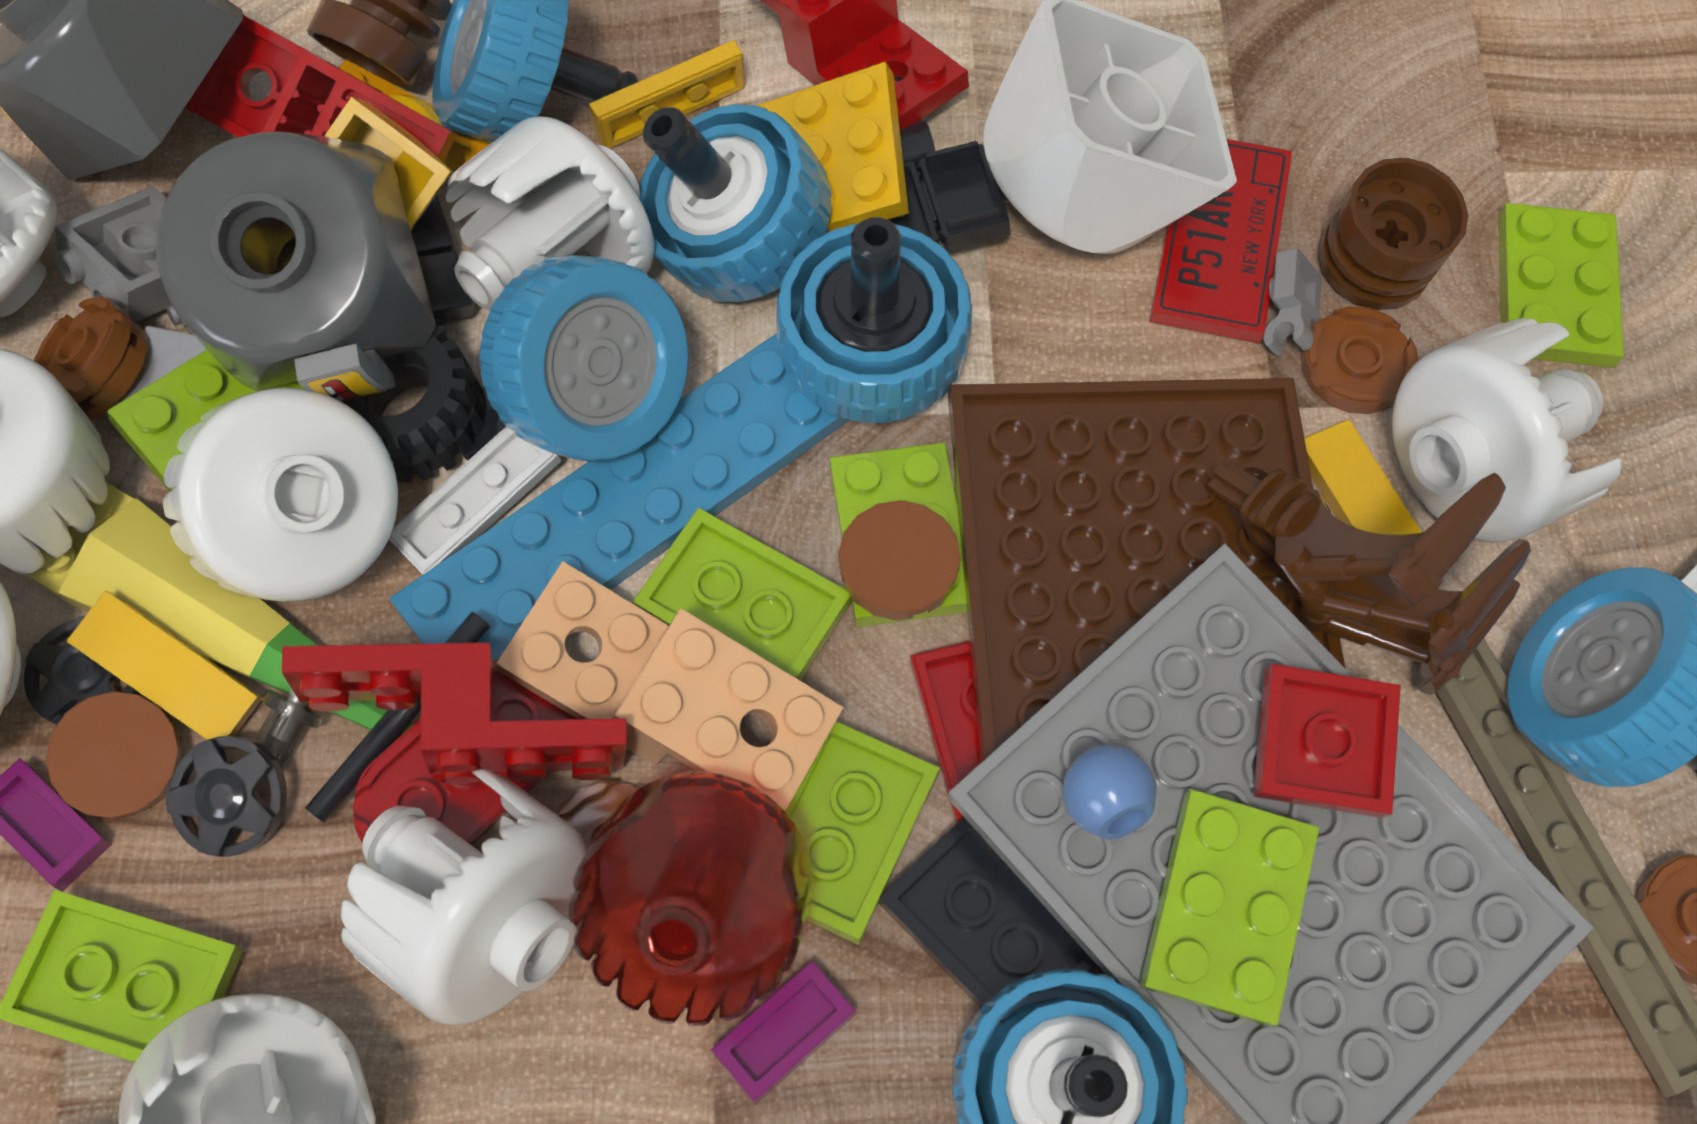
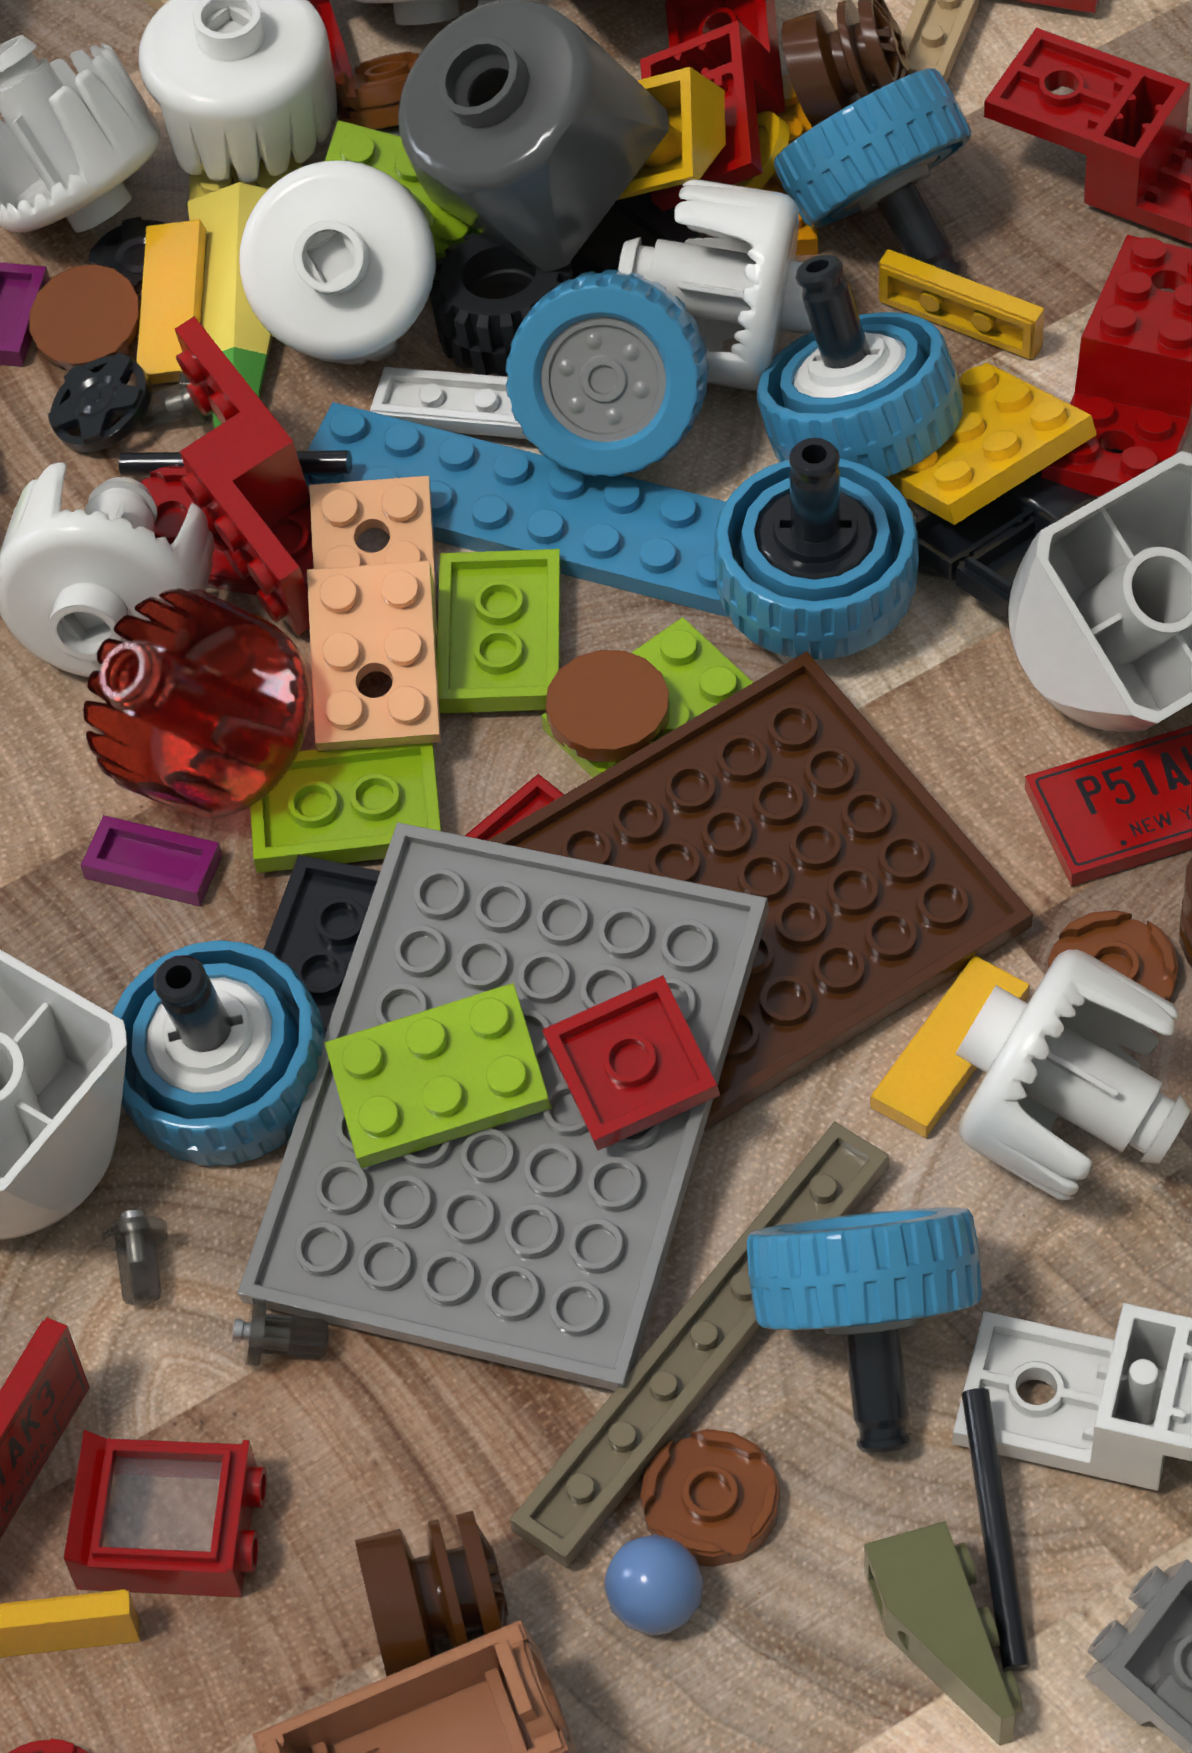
camera: 65 degrees right, 10 degrees down
(344, 373) = (456, 227): light grey slope -> none
(1109, 791) = (461, 915): medium blue piece -> none
(1296, 294) = (1134, 878): light grey plate -> none
(1380, 584) = (802, 997): reddish brown piece -> none

